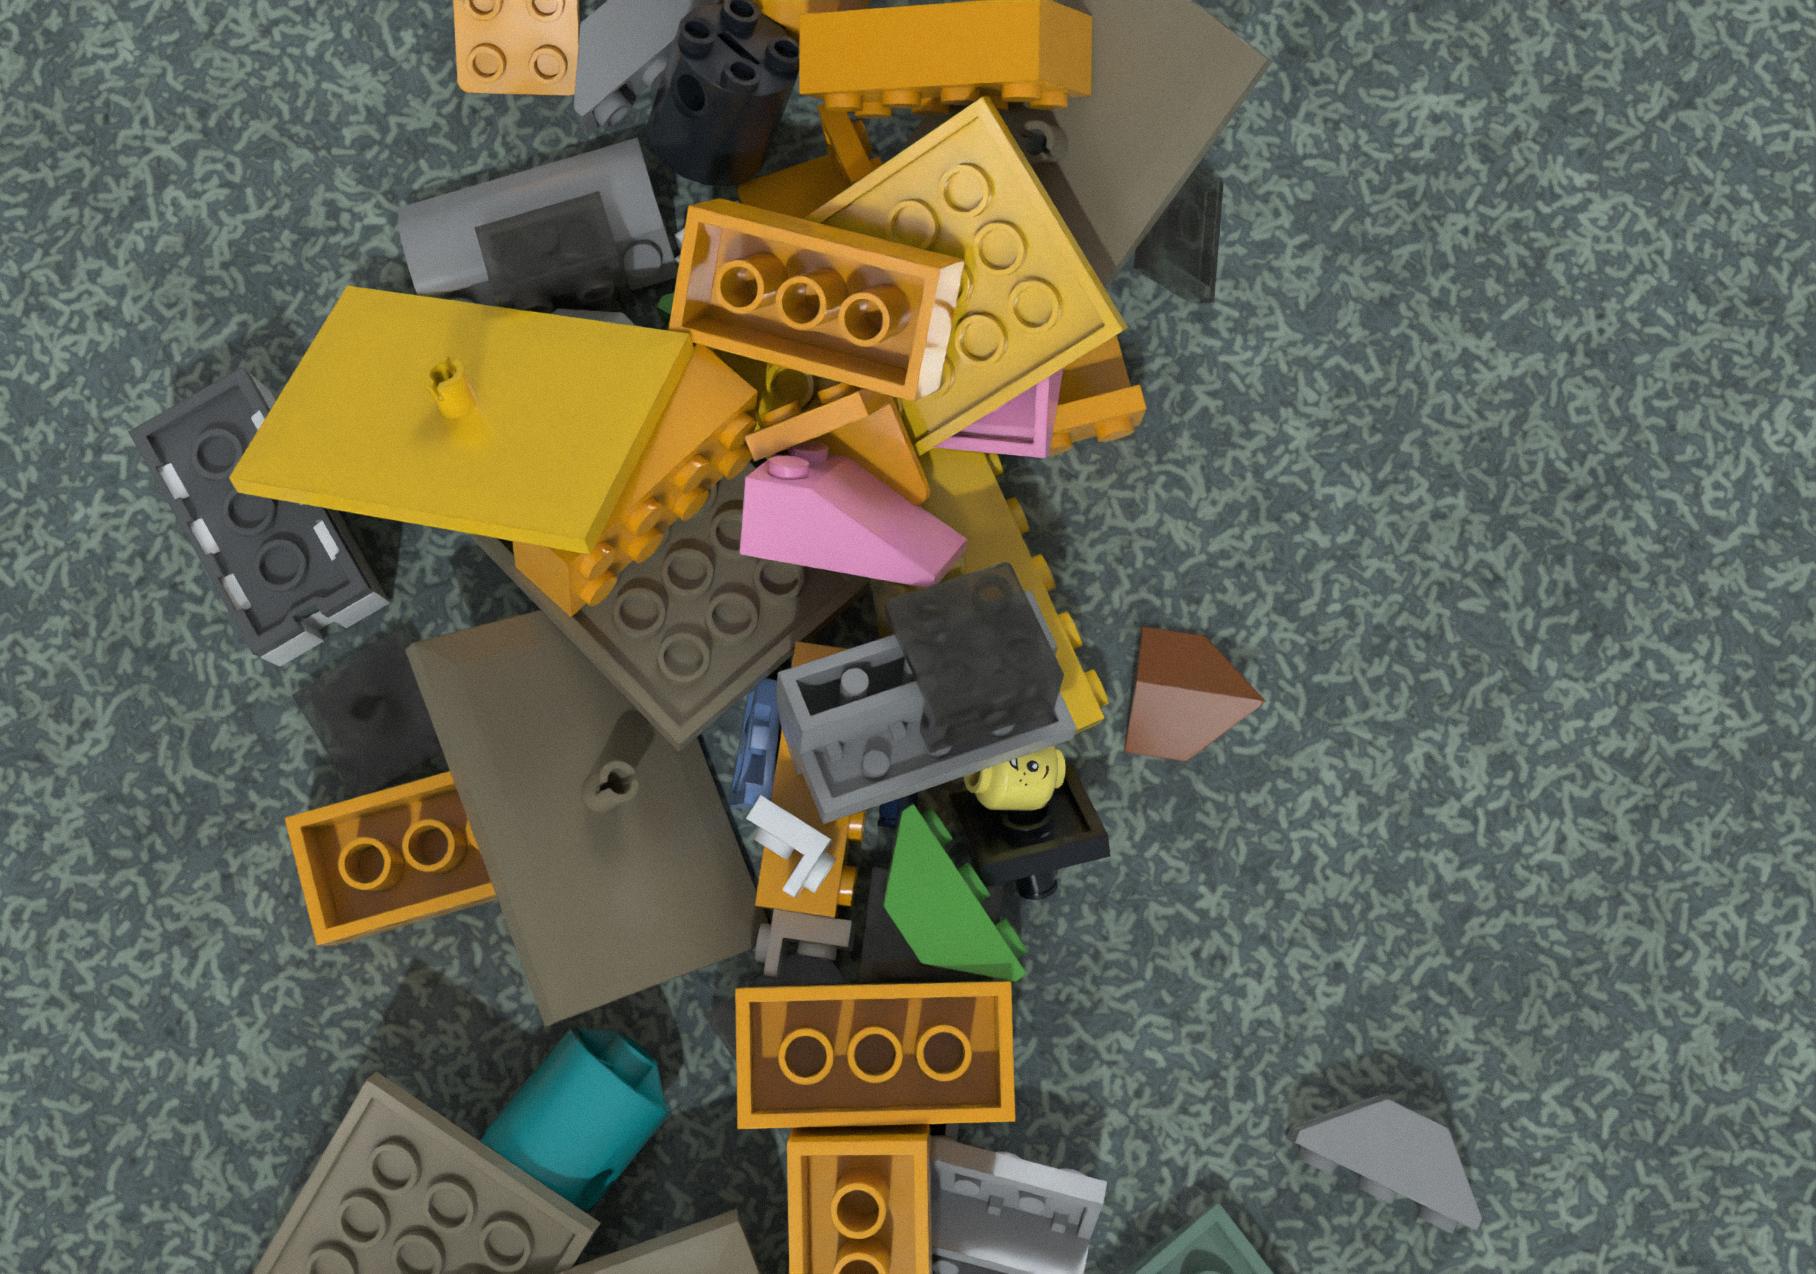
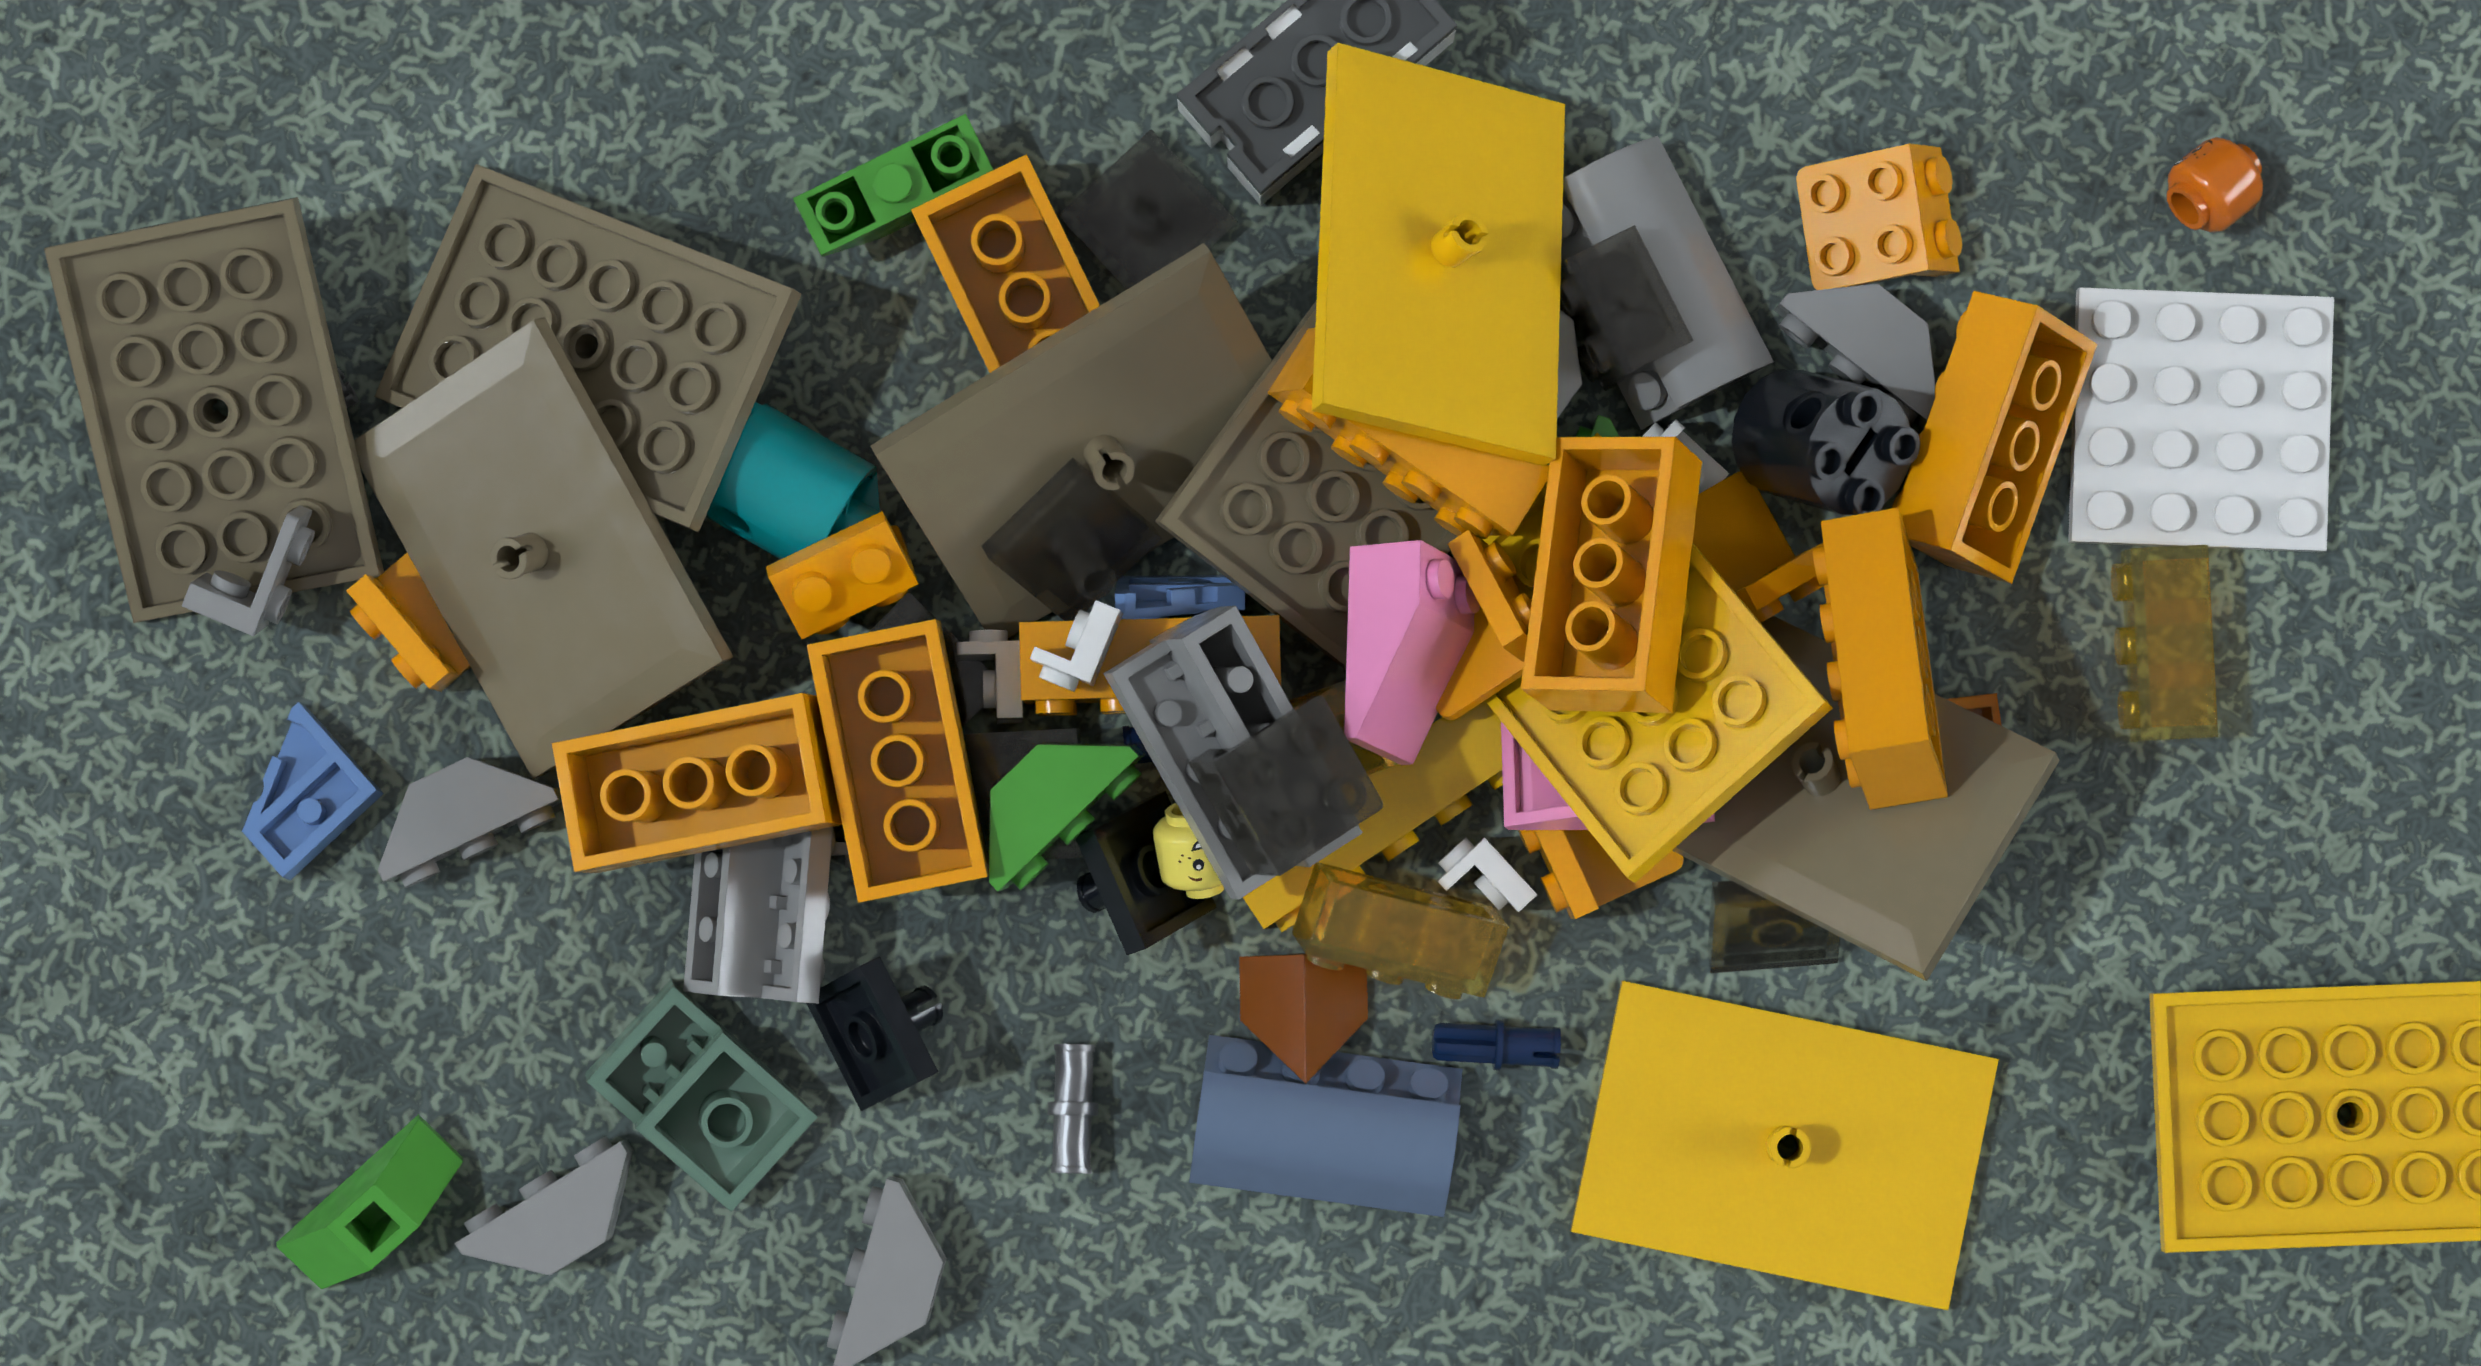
camera: 80 degrees right, 5 degrees up
(298, 979) = (881, 192): none -> bright green slope
(674, 1079) = (843, 575): none -> light orange bracket
(684, 842) = (1071, 542): none -> clear smoke tile
(1090, 483) = (1498, 878): none -> white bracket
(1129, 585) = (1399, 932): none -> clear yellow brick
(1144, 1126) = (876, 1032): none -> black tile
(1250, 942) = (1072, 1108): none -> flat silver pin
(1251, 514) = (1497, 1044): none -> dark blue axle
(1322, 662) = (1350, 1135): none -> sand blue brick
(1372, 340) = (1694, 1126): none -> yellow piece

